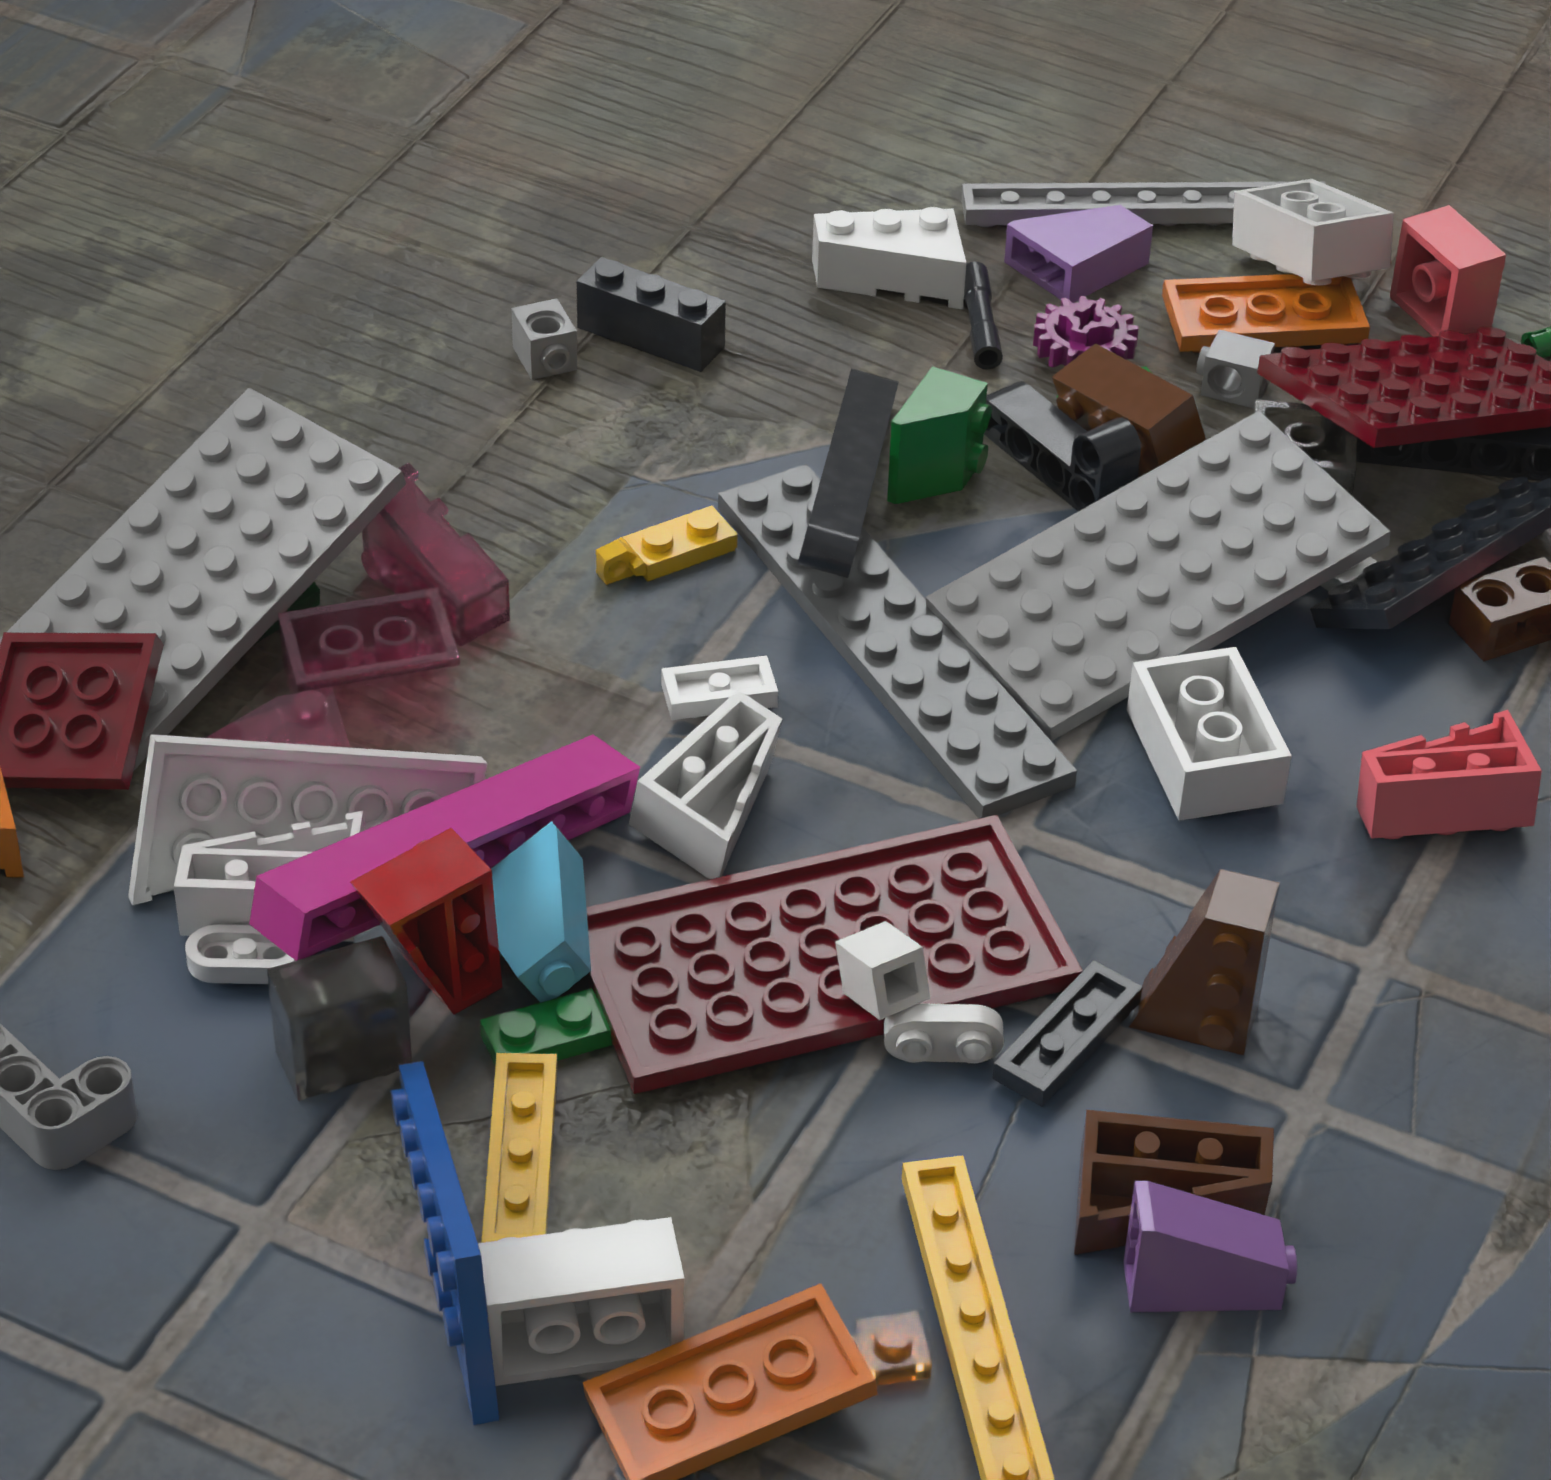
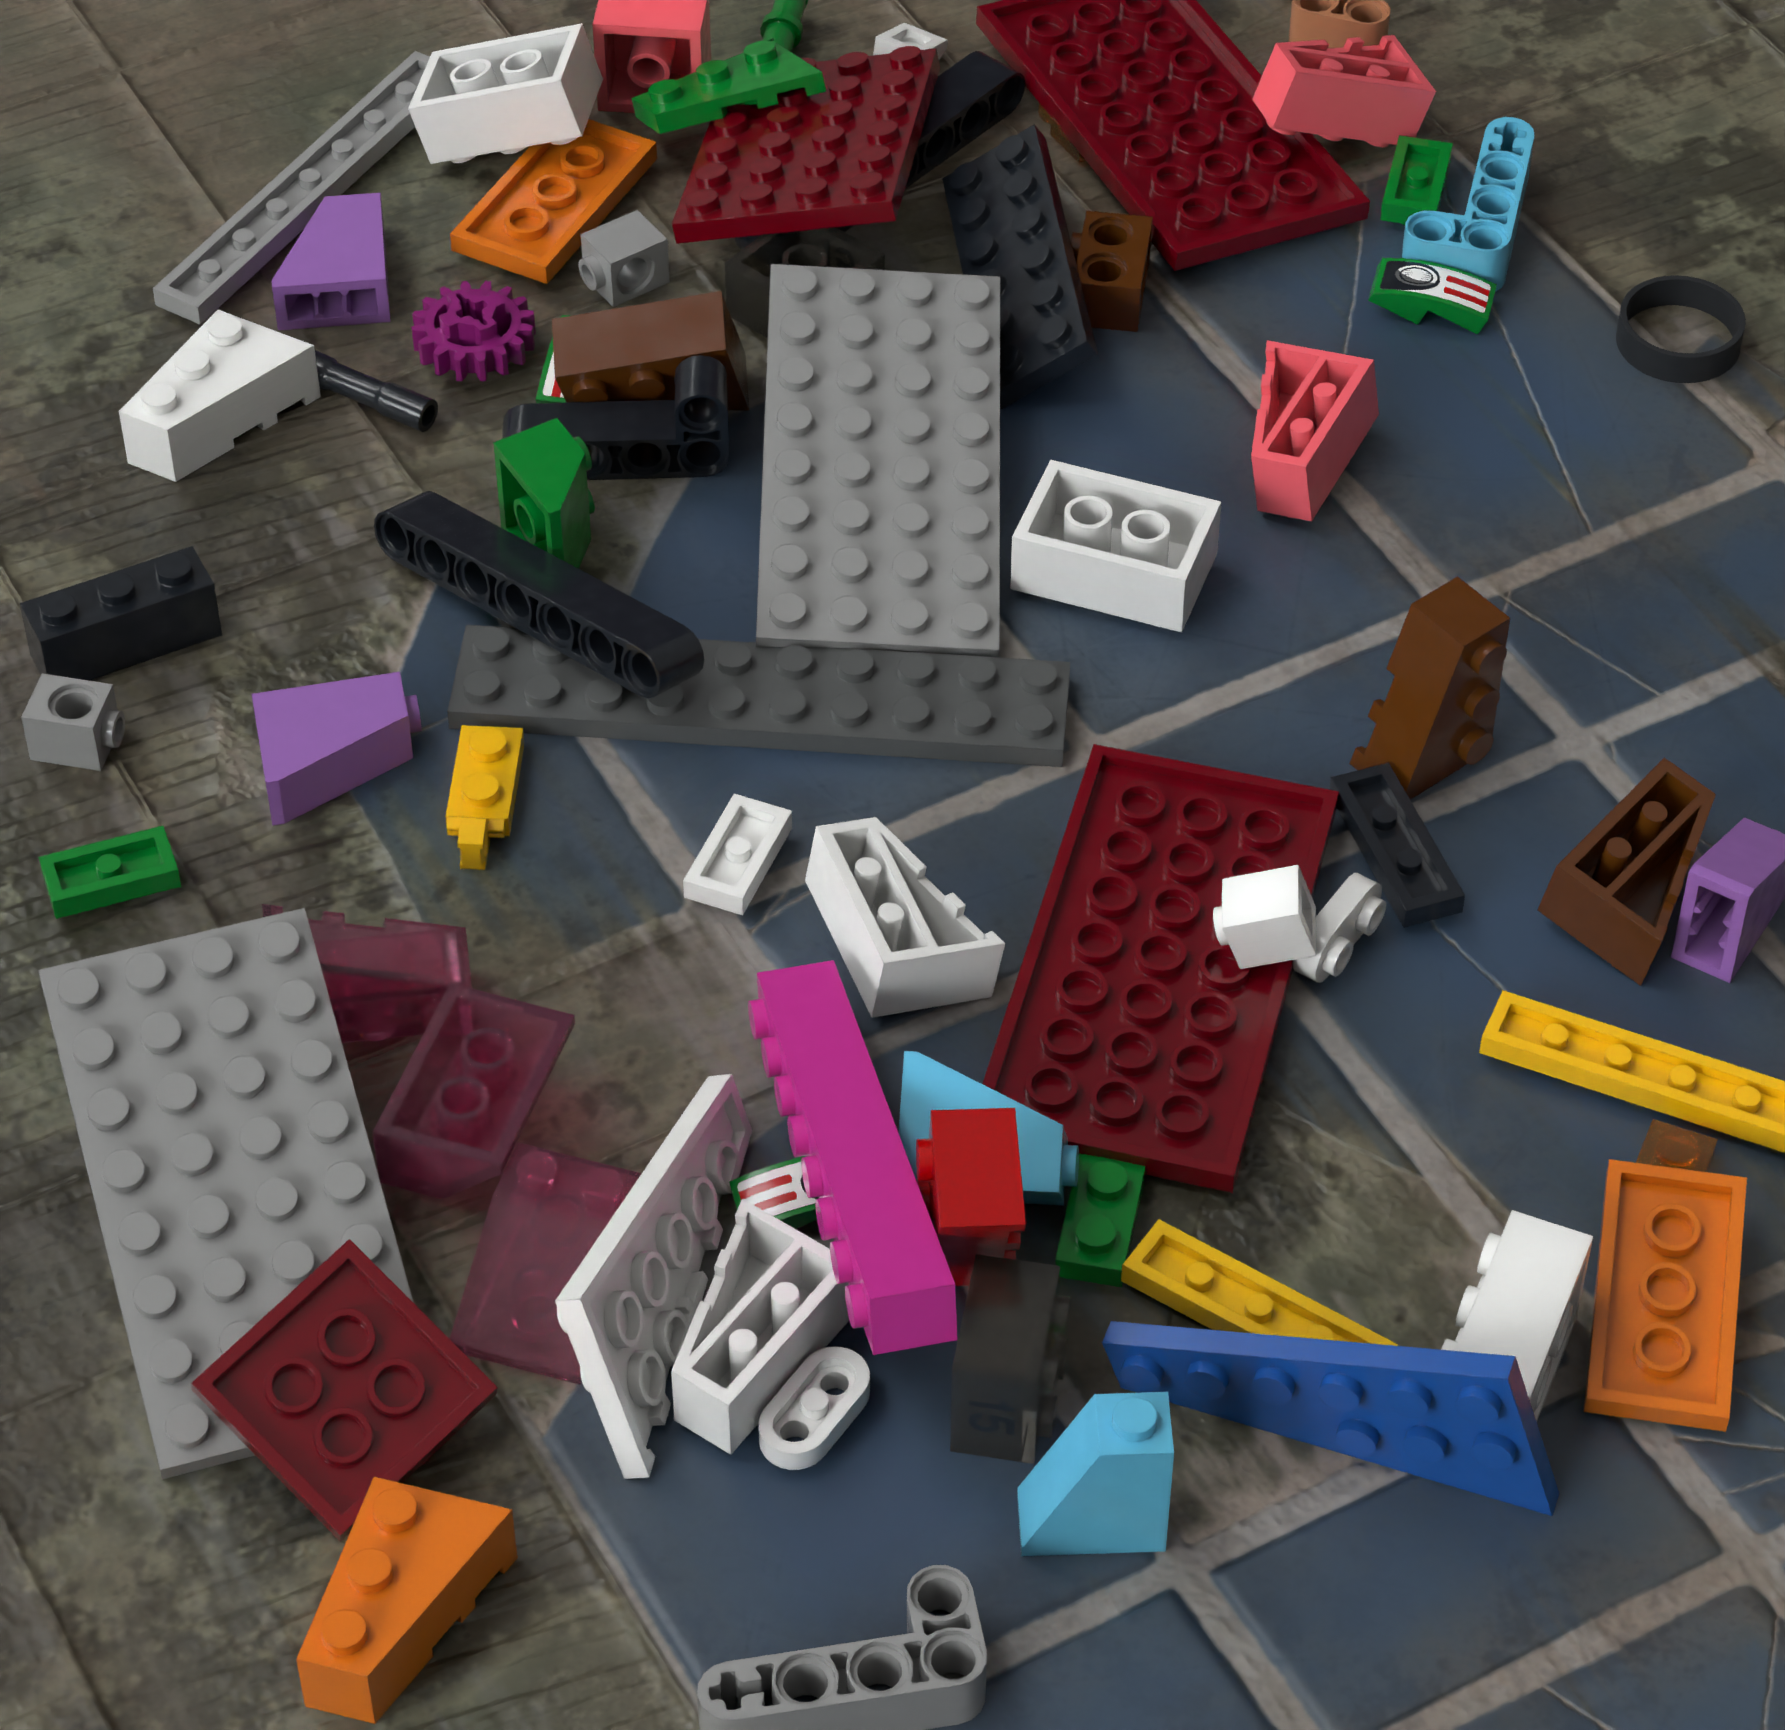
camera: 55 degrees left, 5 degrees up
(271, 1125) = (1102, 1481): none -> medium azure slope
(435, 418) = (109, 871): none -> green plate
(633, 452) = (331, 739): none -> medium lavender slope
(1459, 326) = (743, 79): none -> green wing

